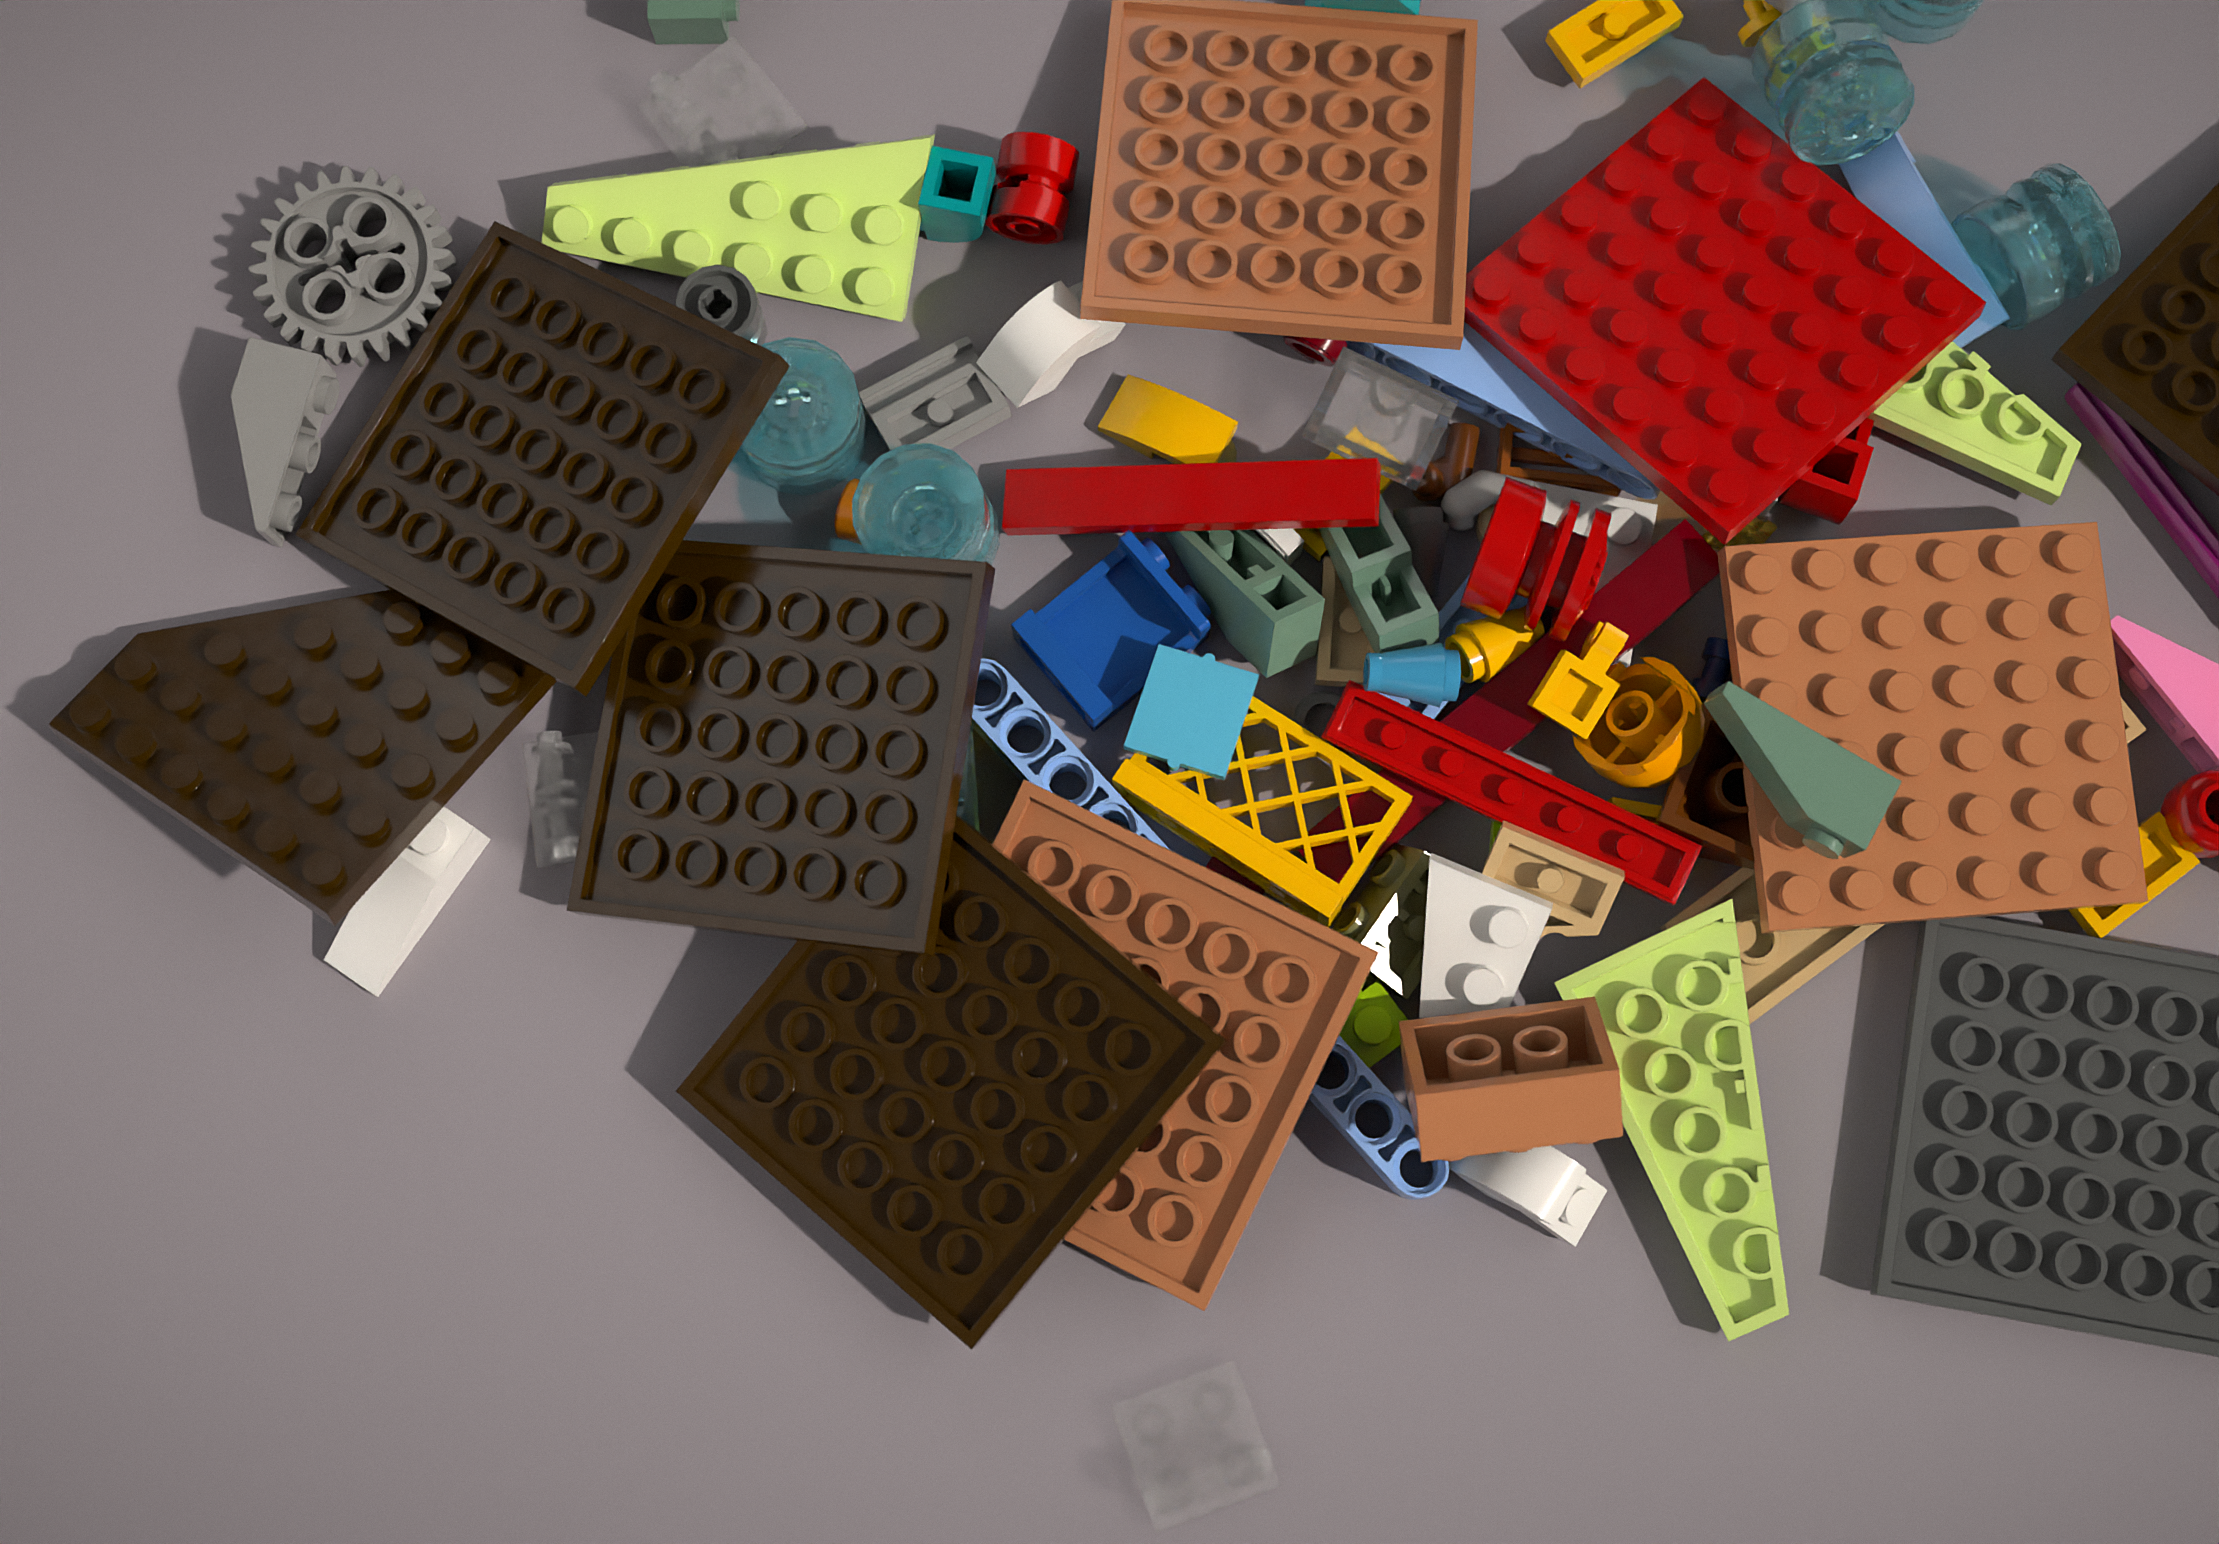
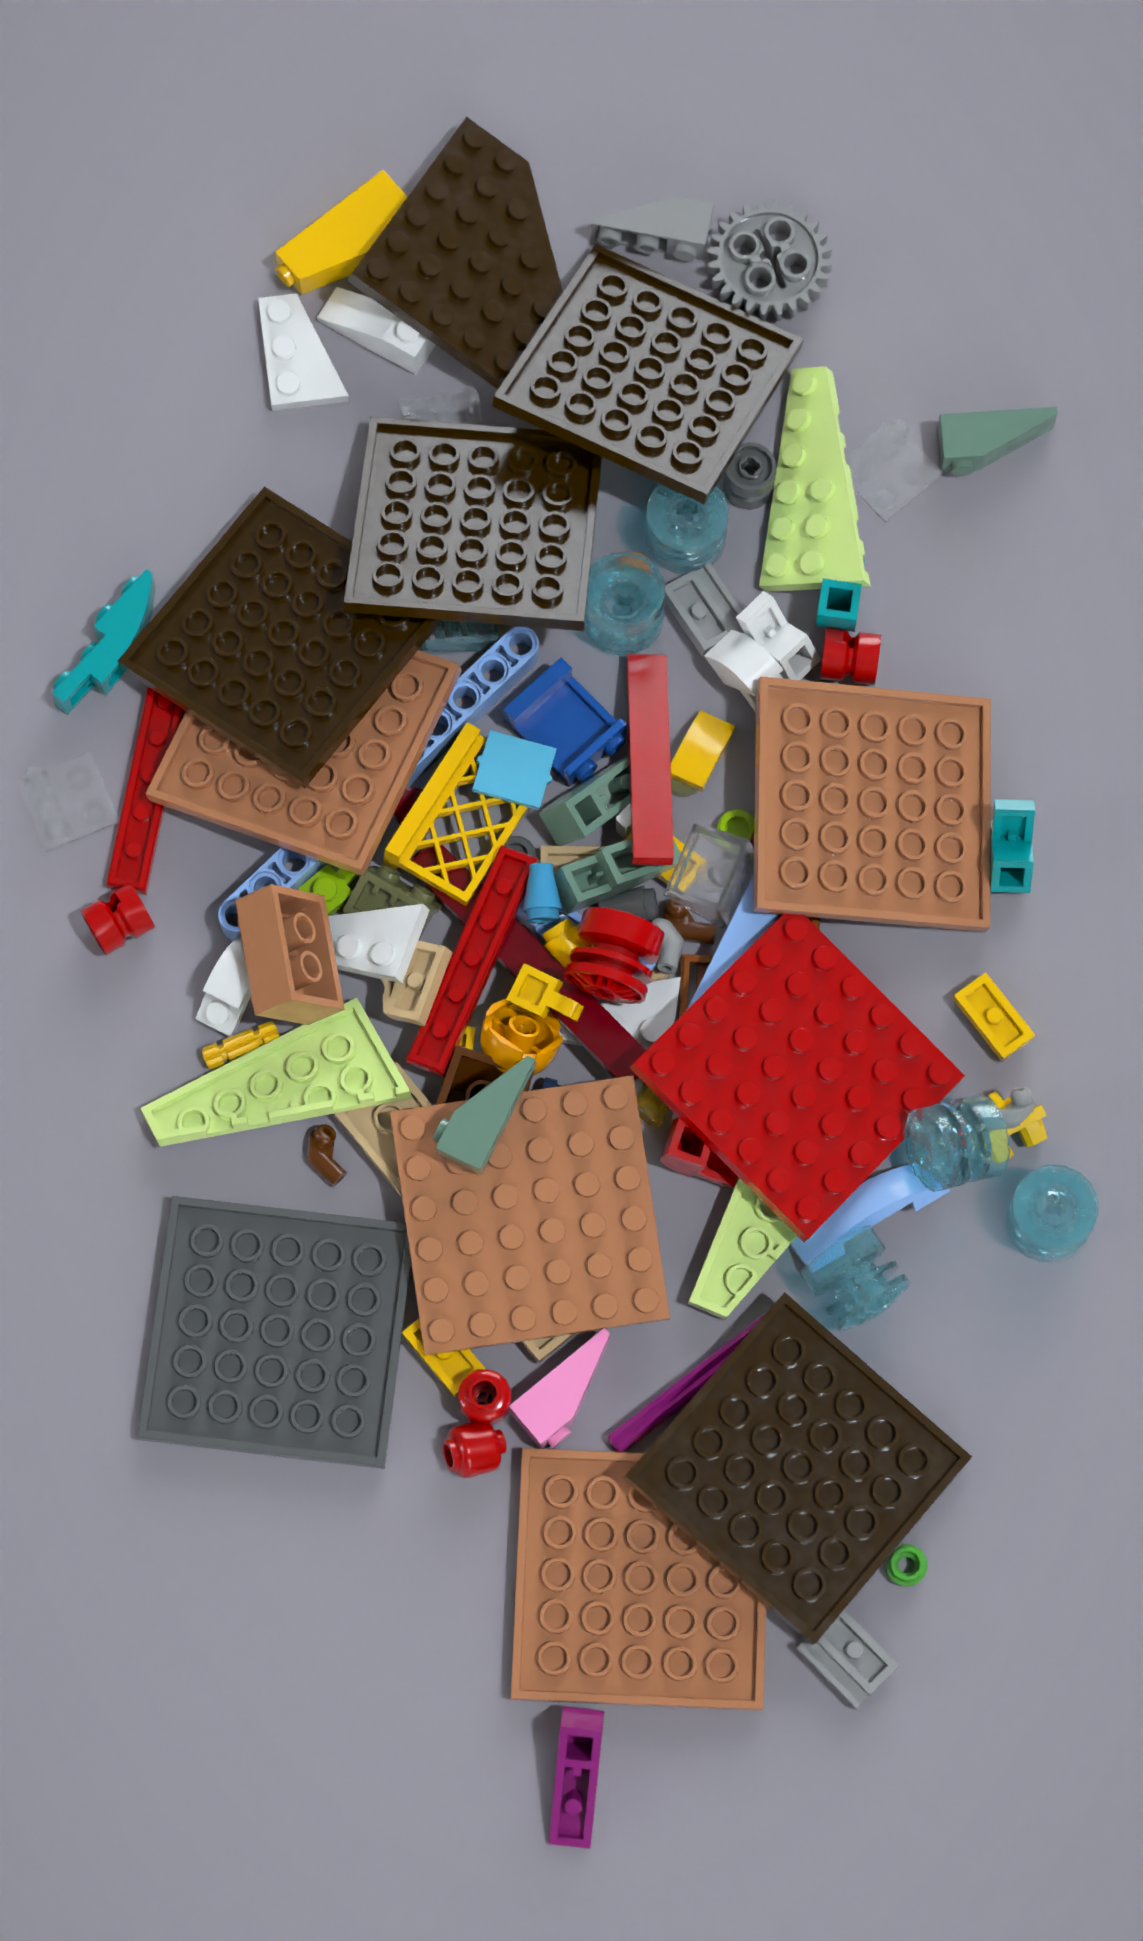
camera: 85 degrees right, 5 degrees down
(240, 938) = (340, 237): none -> yellow slope
(441, 1034) = (295, 357): none -> white wing
(908, 1342) = (116, 629): none -> teal slope
(1009, 278) = (785, 643): none -> white brick
(1231, 1326) = (142, 818): none -> red tile
(1295, 383) = (737, 823): none -> lime tile
(1411, 1367) = (117, 919): none -> red wheel
(1625, 1187) = (239, 1044): none -> yellow axle
(1805, 1054) = (321, 1154): none -> reddish brown arm

